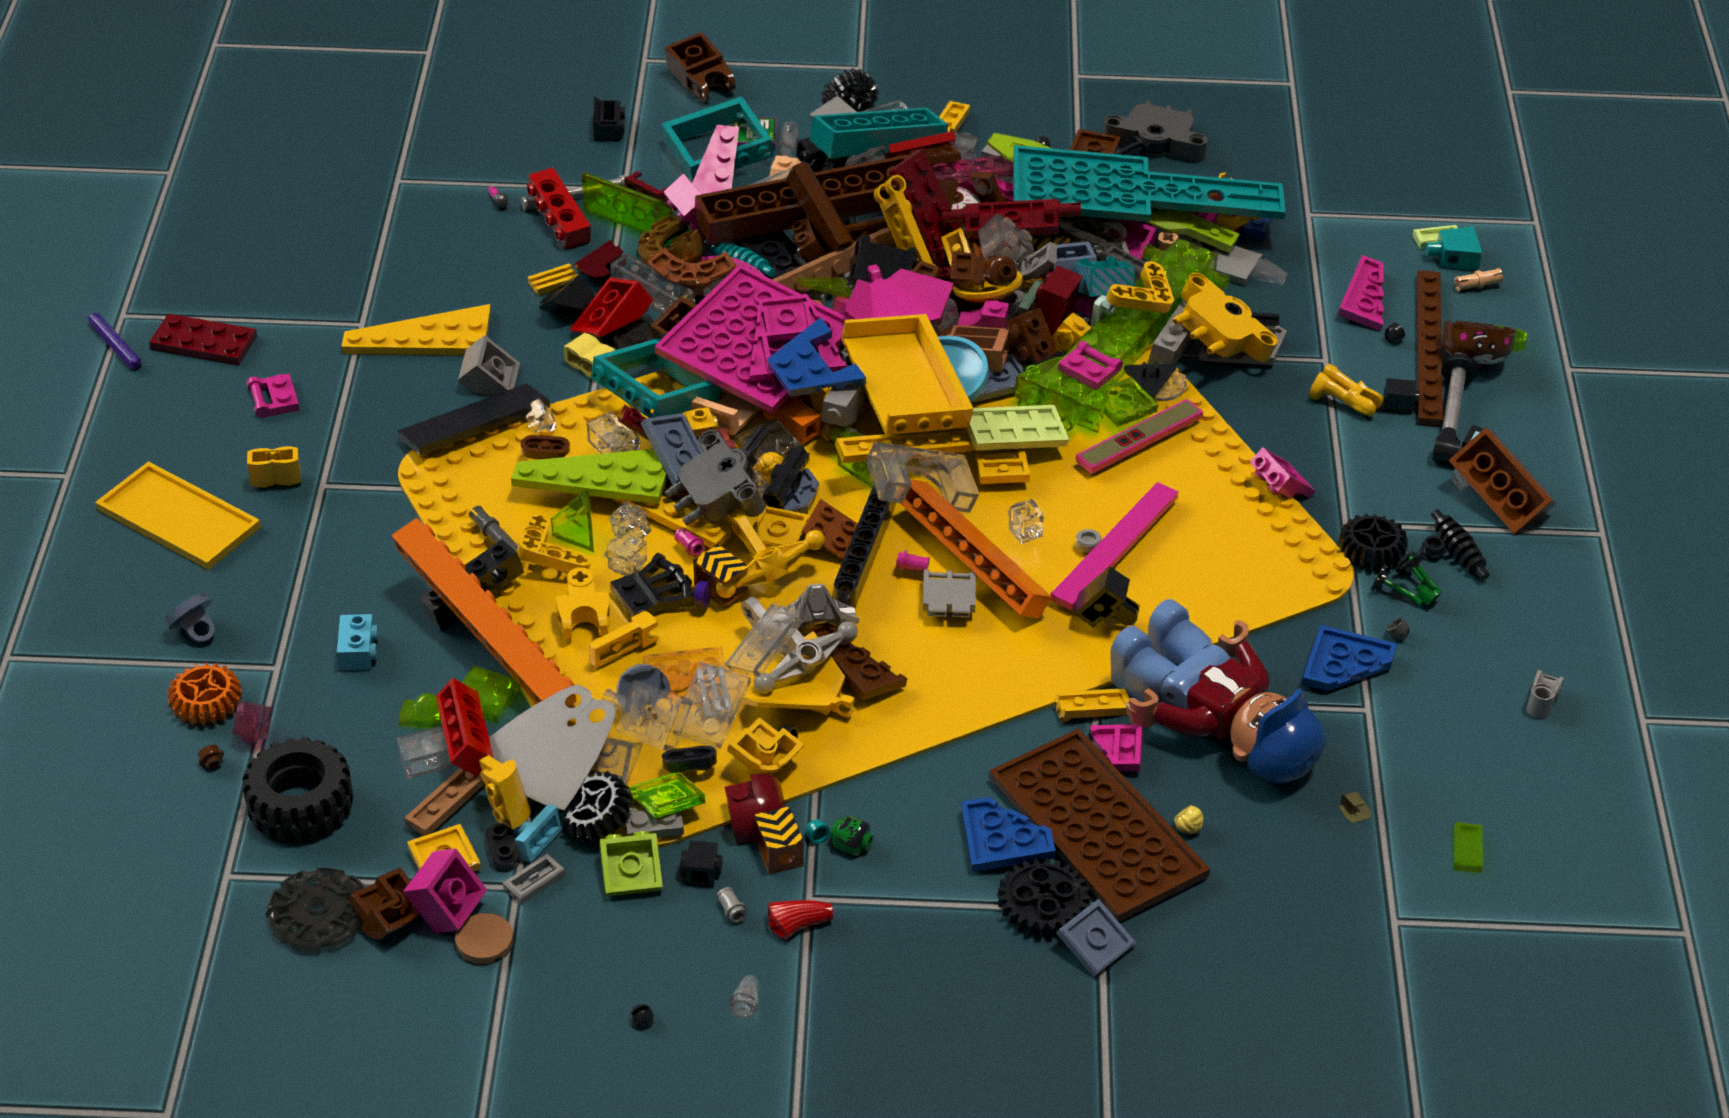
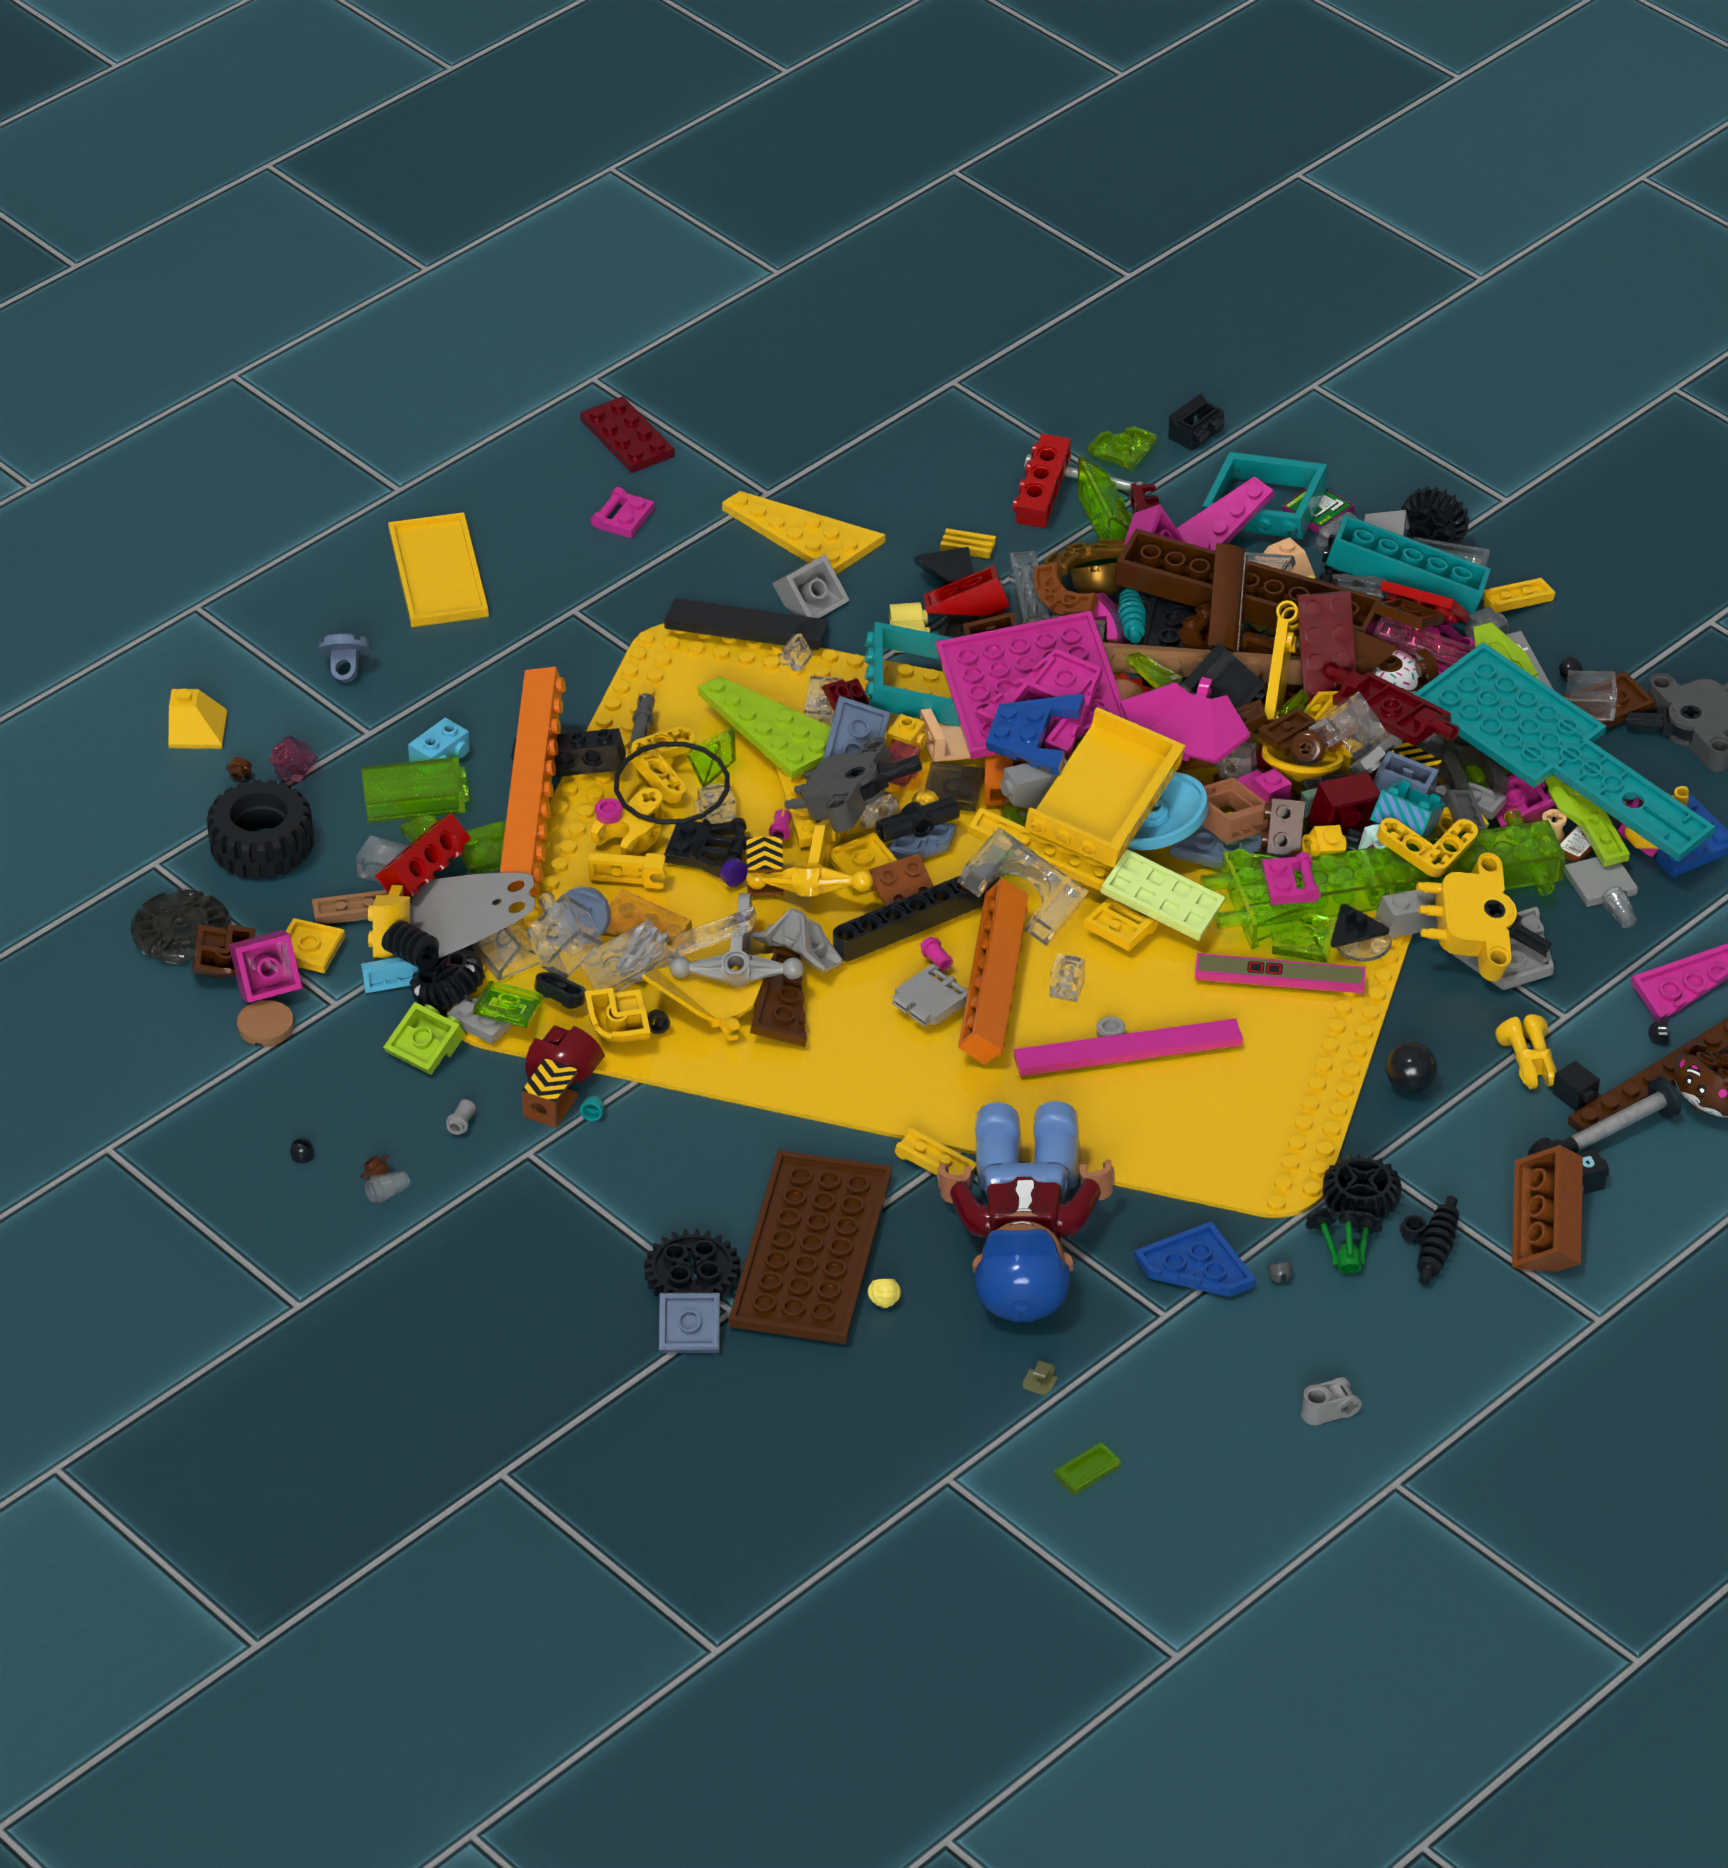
camera: 45 degrees right, 0 degrees up
(114, 341) = (558, 397): dark purple axle -> none
(124, 743) = (195, 720): none -> yellow slope
(204, 694) = (288, 715): orange gear -> none
(274, 466) = (543, 571): yellow brick -> none
(375, 685) = (414, 789): none -> clear neon green brick
(500, 200) = (1011, 446): flat silver piece -> none
(502, 847) = (350, 973): black plate -> none
(537, 880) = (351, 1005): light grey tile -> none
(544, 447) = (766, 679): reddish brown plate -> none
(549, 797) = (411, 945): none -> black piece
(565, 604) = (608, 811): none -> dark pink tile
(577, 159) = (1123, 448): none -> clear neon green plate
(583, 593) = (672, 821): none -> black piece
(598, 261) = (1001, 544): dark red brick -> none
(630, 520) = (747, 780): clear brick -> none
(699, 66) = (1341, 415): reddish brown brick -> none
(701, 863) = (476, 1072): black brick -> none
(720, 988) = (375, 1166): none -> reddish brown plate
(791, 916) = (492, 1154): red piece -> none
(851, 835) = (610, 1126): green head -> none
(941, 254) = (1296, 701): none -> clear neon green plate
(1003, 836) = (720, 1204): blue plate -> none
(1090, 141) = (1593, 692): none -> clear piece
(1105, 599) = (1040, 1077): brick -> none
(1120, 744) = (911, 1203): dark pink wing -> none
(1280, 475) = (1356, 1081): dark pink plate -> none
(1301, 444) = (1411, 1067): none -> black piece

